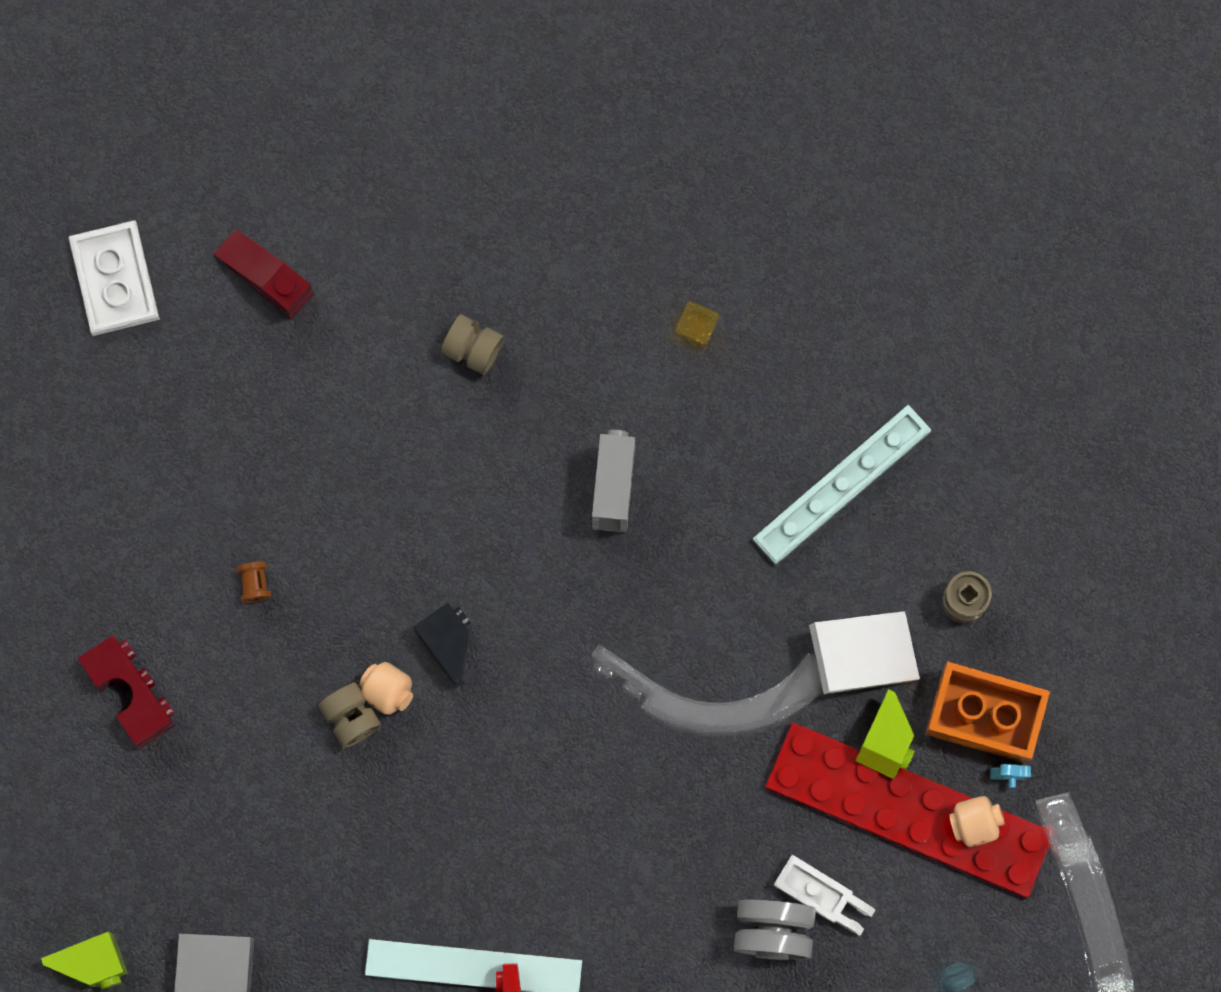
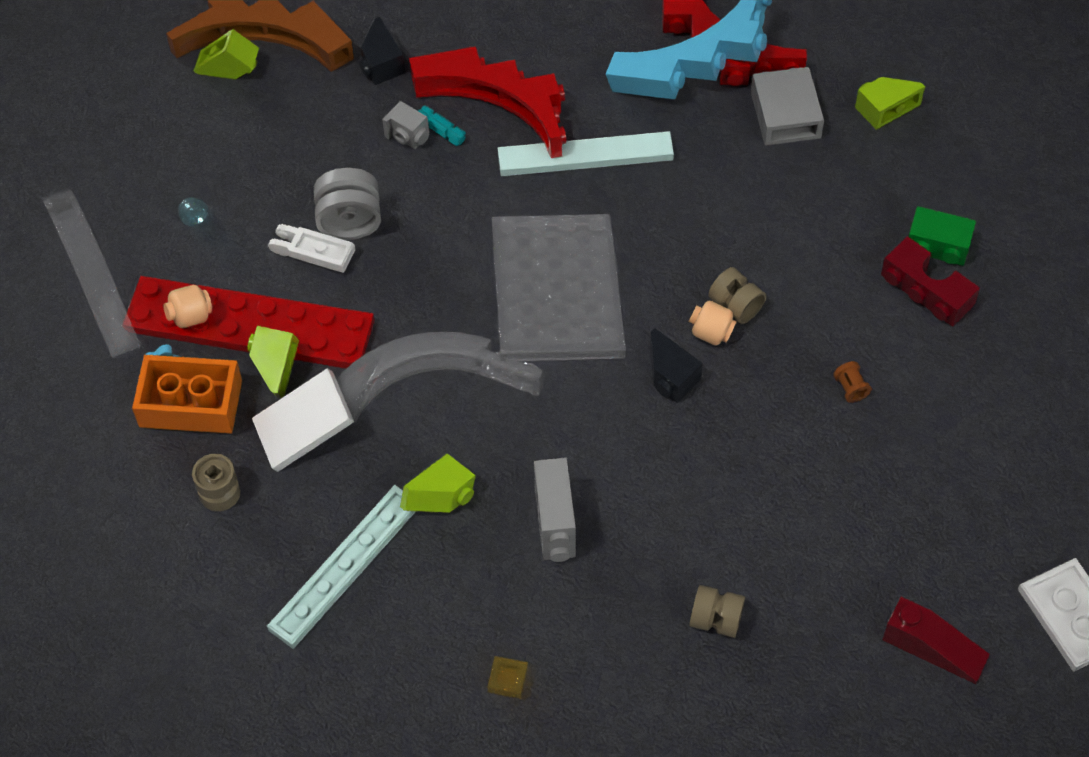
camera: 170 degrees right, 20 degrees down
(94, 749) = (942, 234): none -> green brick
(551, 771) = (557, 288): none -> clear plate
(726, 542) = (439, 487): none -> lime slope

